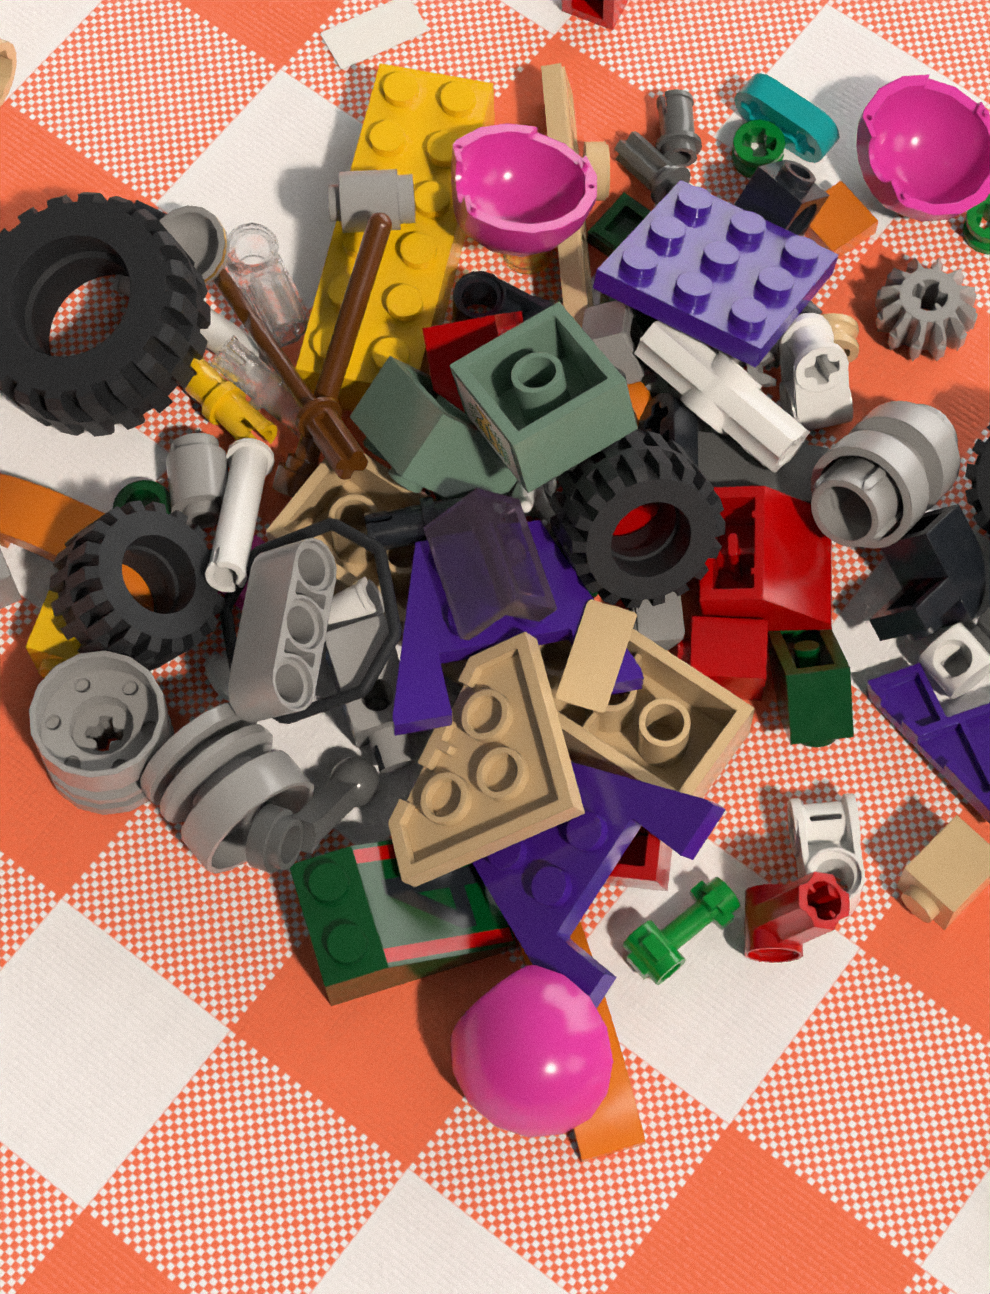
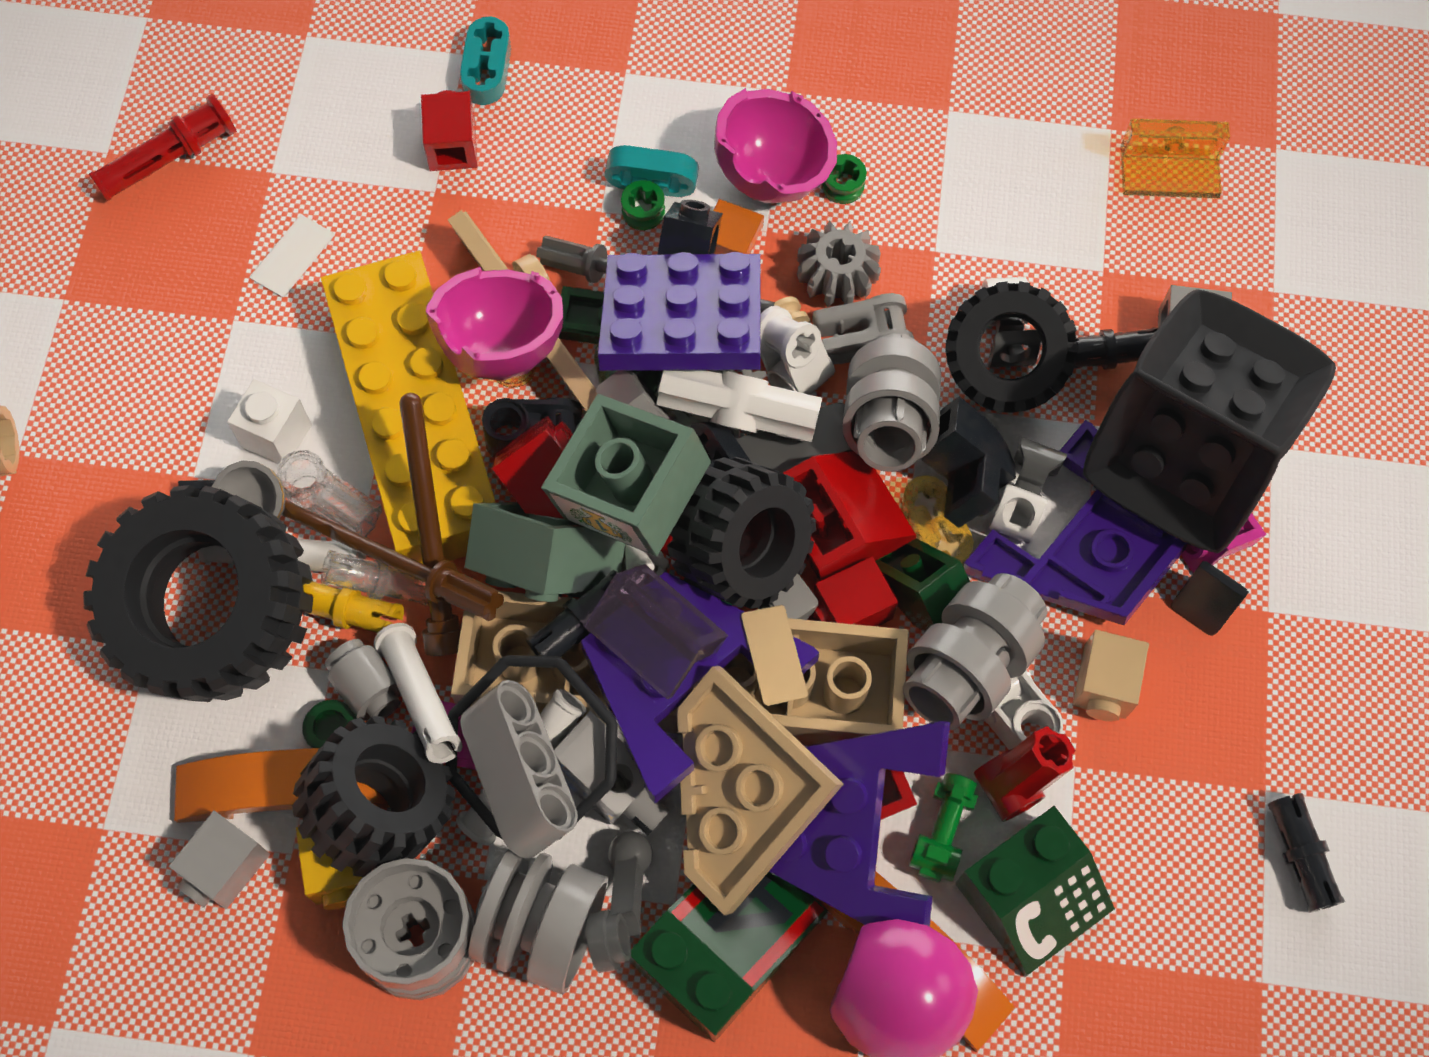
camera: 35 degrees left, 0 degrees up
(252, 183) = (269, 421): none -> white brick
(371, 192) = (380, 386): light grey brick -> none
(677, 131) = (574, 218): dark grey pin -> none
(736, 1040) = (1037, 890): none -> dark green slope
(831, 756) = (968, 659): none -> light grey piece
(852, 627) = (922, 522): none -> clear yellow beam
(909, 379) = (859, 324): none -> light grey piece

